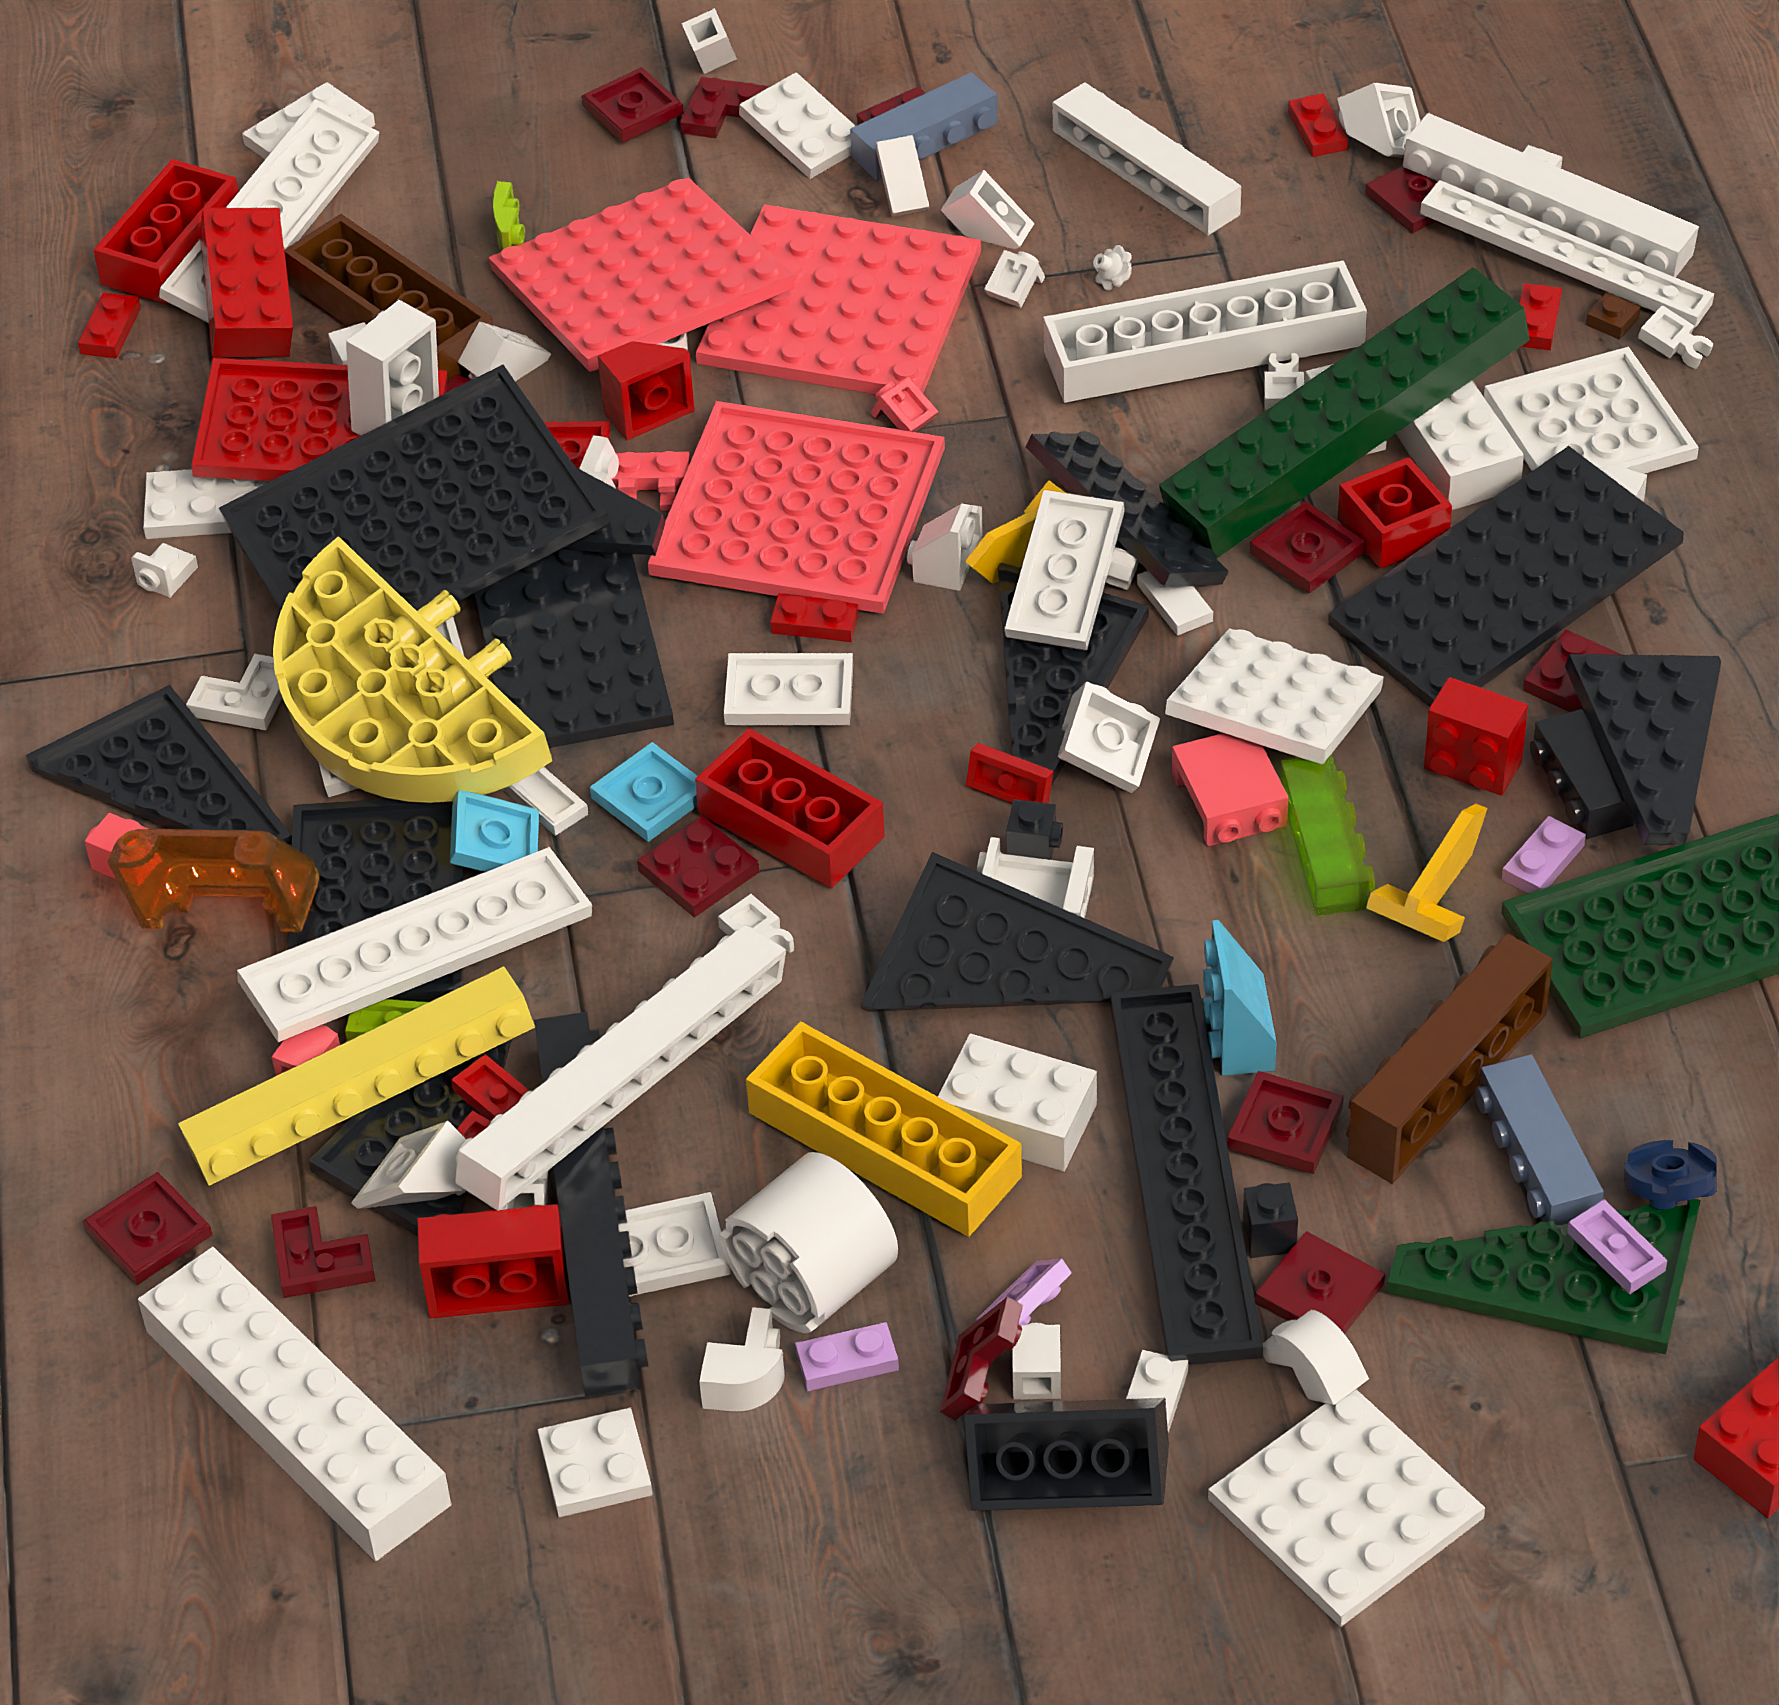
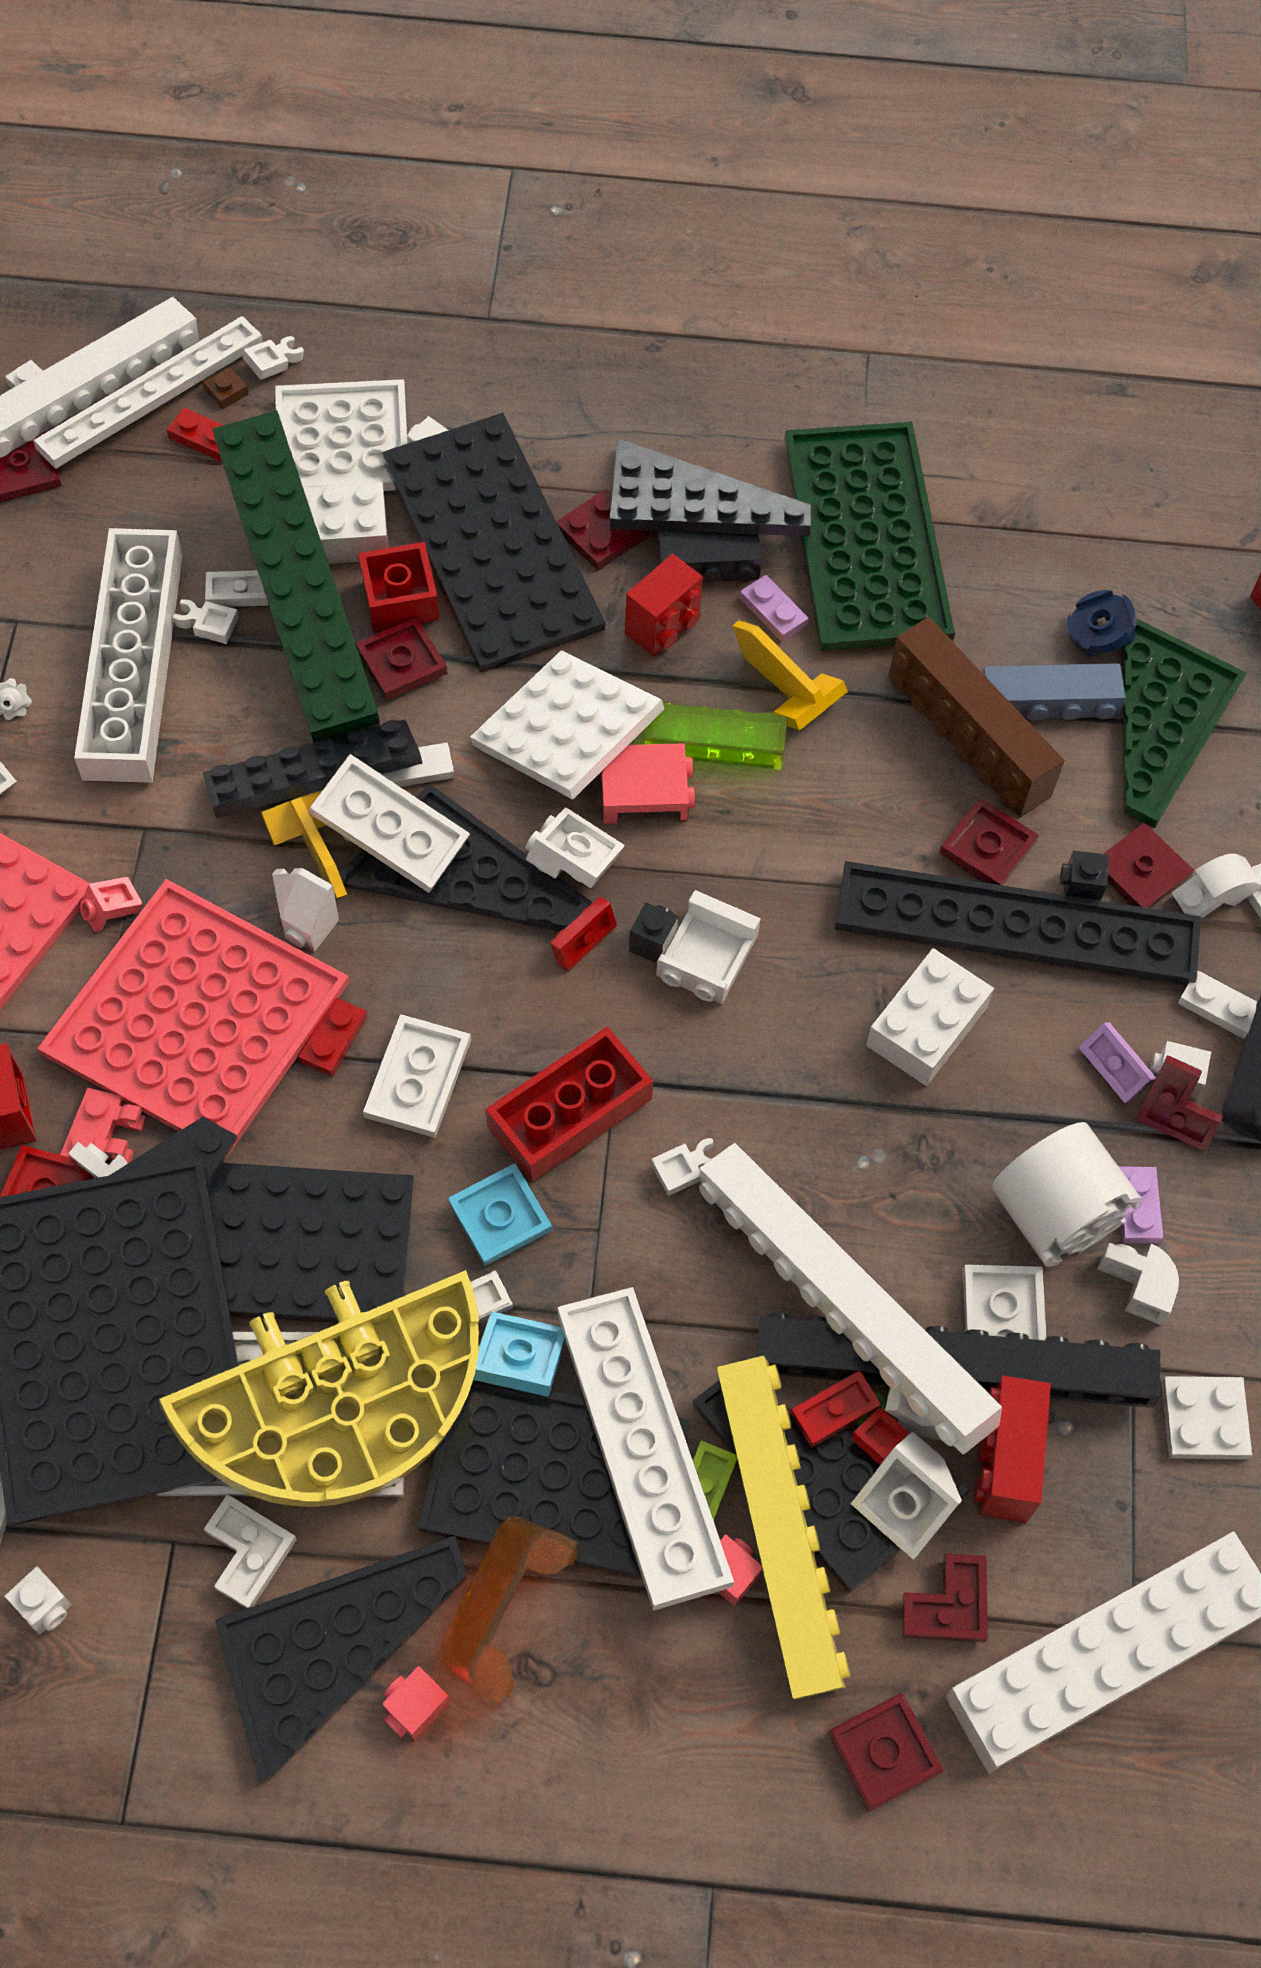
camera: 80 degrees left, 15 degrees up
(698, 866) = (593, 1197): dark red plate -> none
(885, 1128) = (937, 1118): yellow brick -> none
(996, 946) = (769, 986): black wing -> none
(1236, 1007) = (892, 839): medium azure slope -> none
(1617, 1246) = (1170, 671): lavender plate -> none

